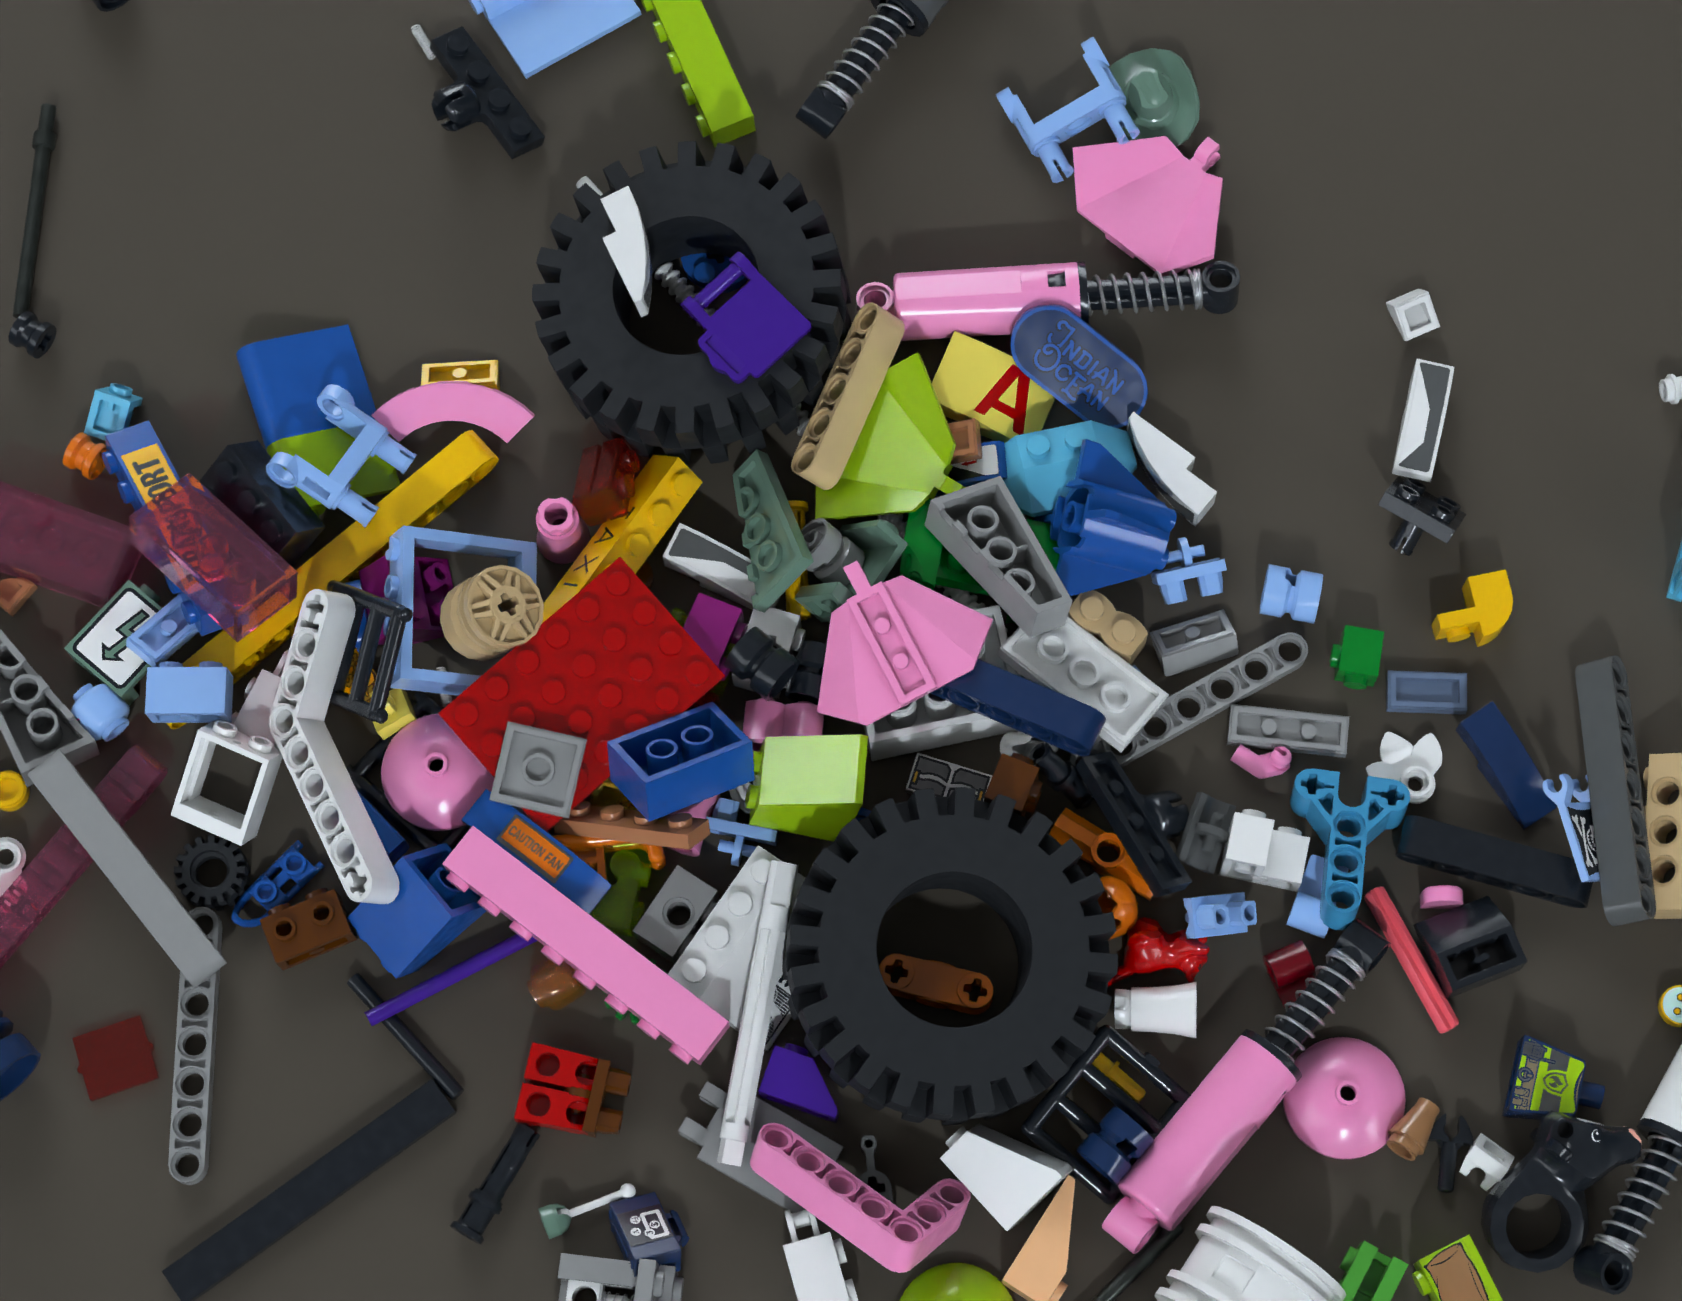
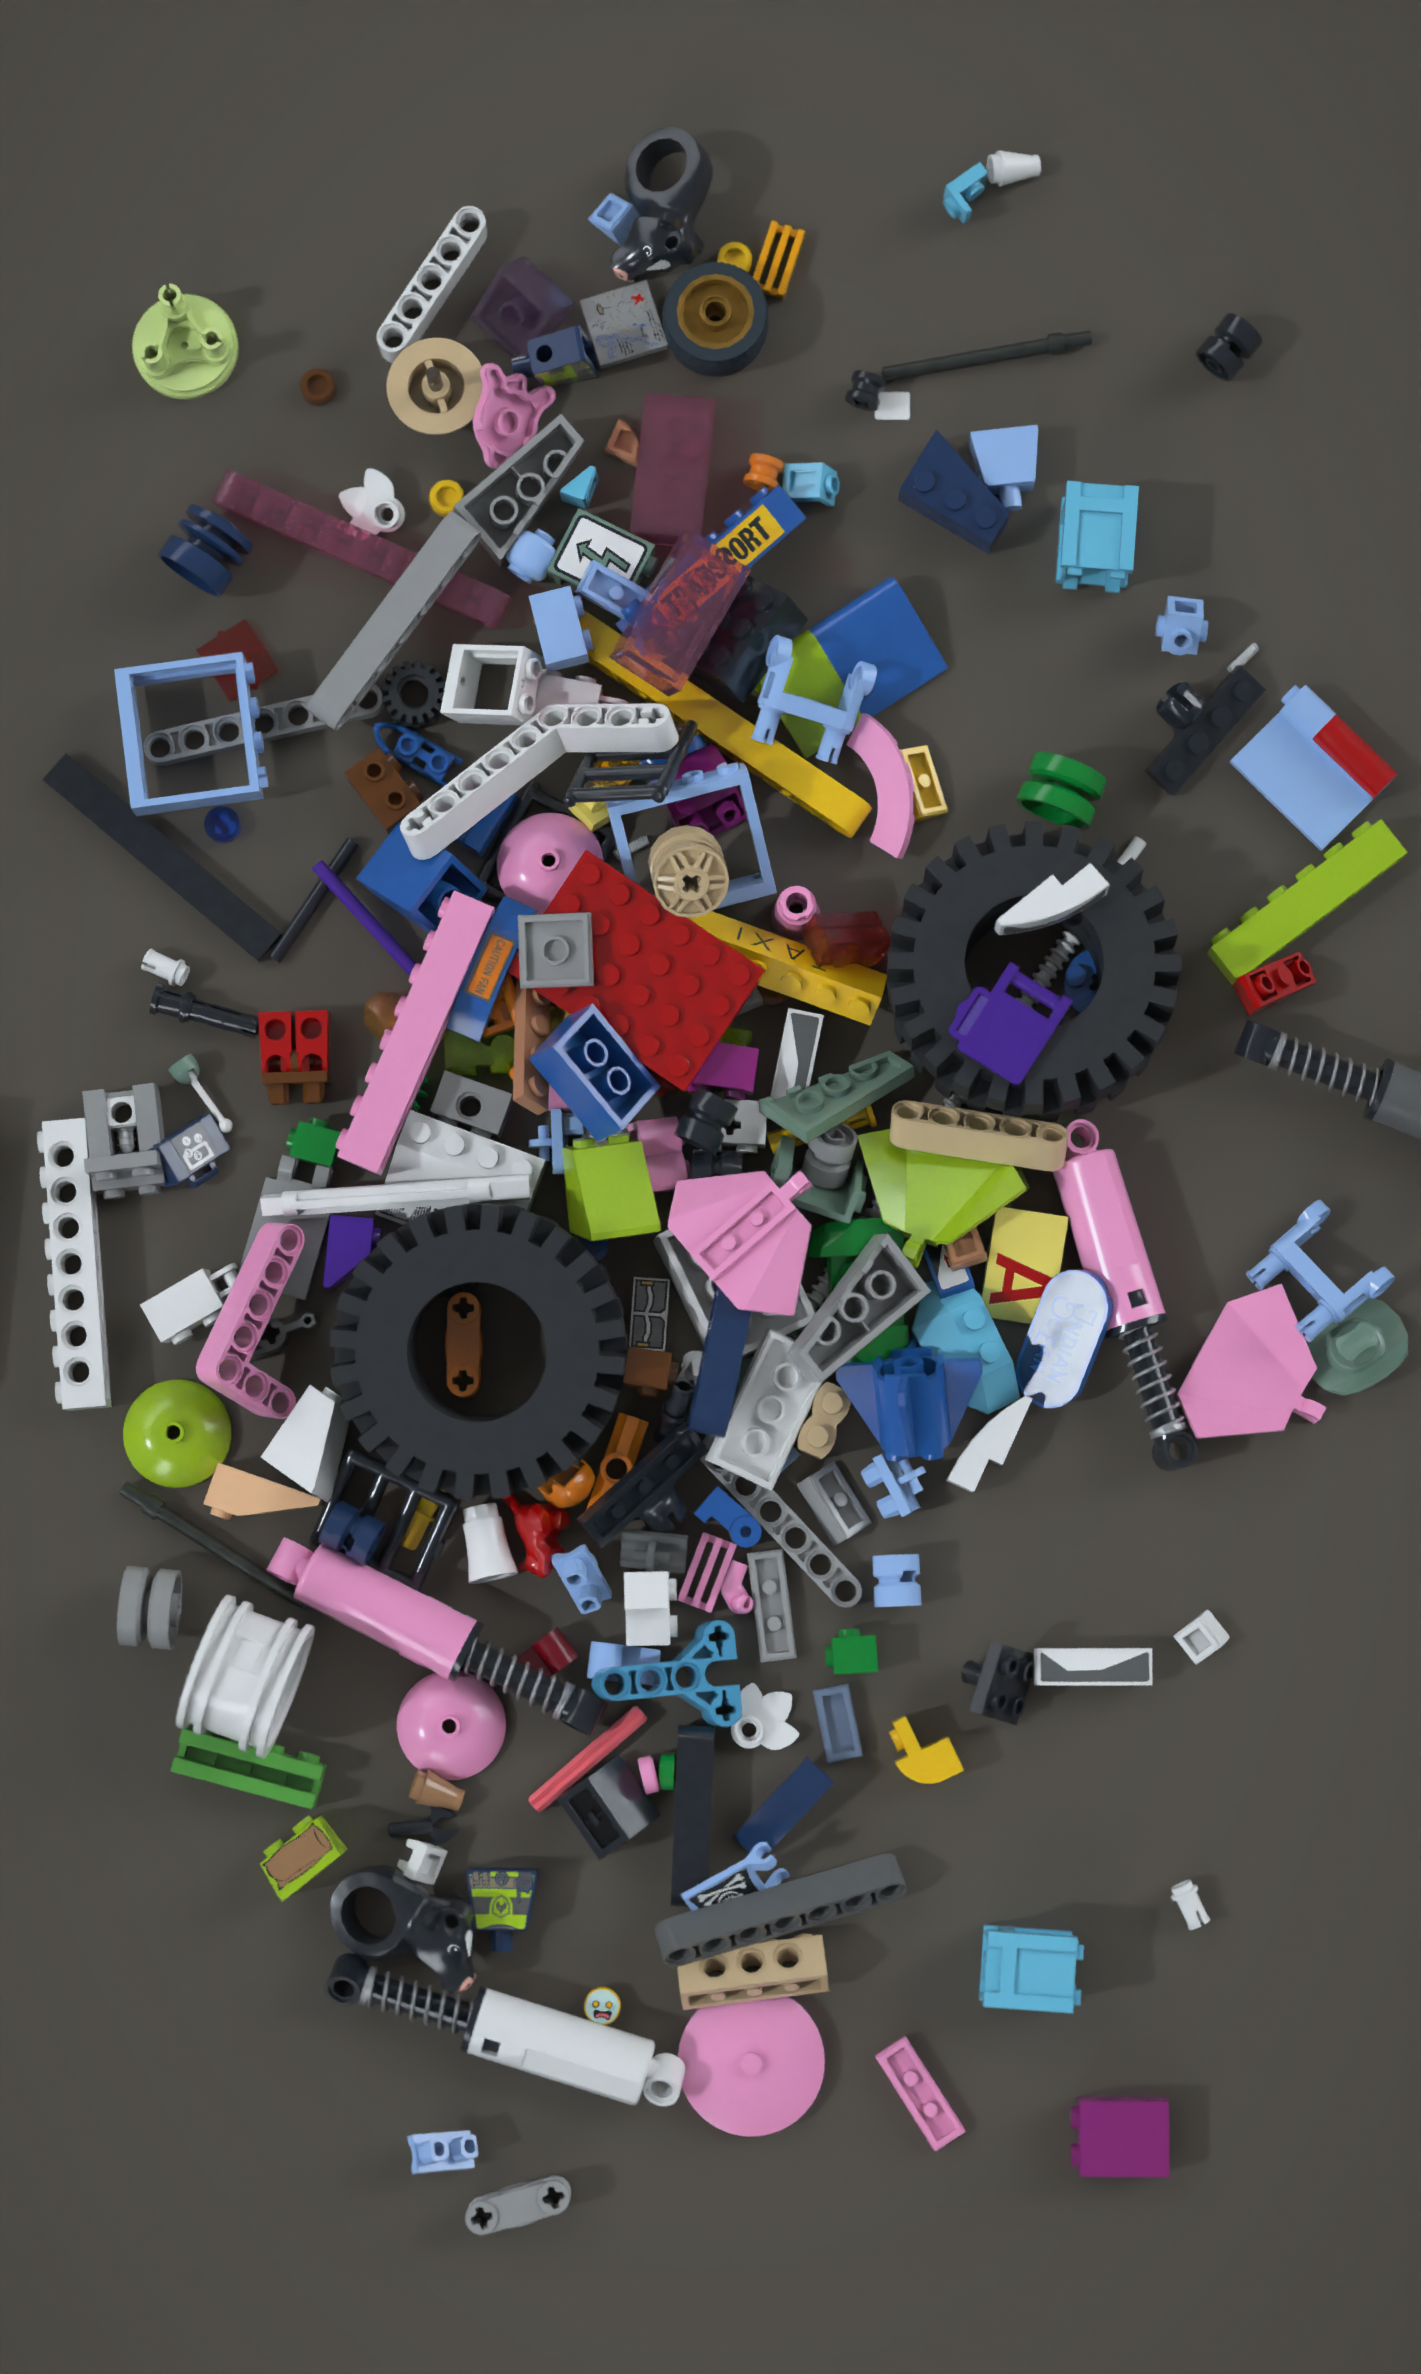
camera: 75 degrees right, 10 degrees up
(45, 646) = (581, 488): none -> medium azure slope
(58, 313) = (893, 406): none -> white sticker
(152, 215) = (1006, 461): none -> light blue torso
(171, 272) = (953, 495): none -> dark blue wedge
(177, 1051) = (130, 677): none -> light blue window
(256, 141) = (1097, 535): none -> medium azure container
(293, 1116) = (222, 824): none -> clear blue tile
(374, 85) = (1182, 626): none -> light blue brick
(434, 1215) = (165, 967): none -> white pin
(509, 235) = (1061, 790): none -> green wheel
(674, 1093) = (314, 1143): none -> green brick
(765, 86) = (1273, 983): none -> red slope
(1192, 742) = (742, 1527): none -> blue leg
(1242, 773) = (718, 1542): none -> bright pink tile
(1442, 874) = (667, 1771): none -> green tile

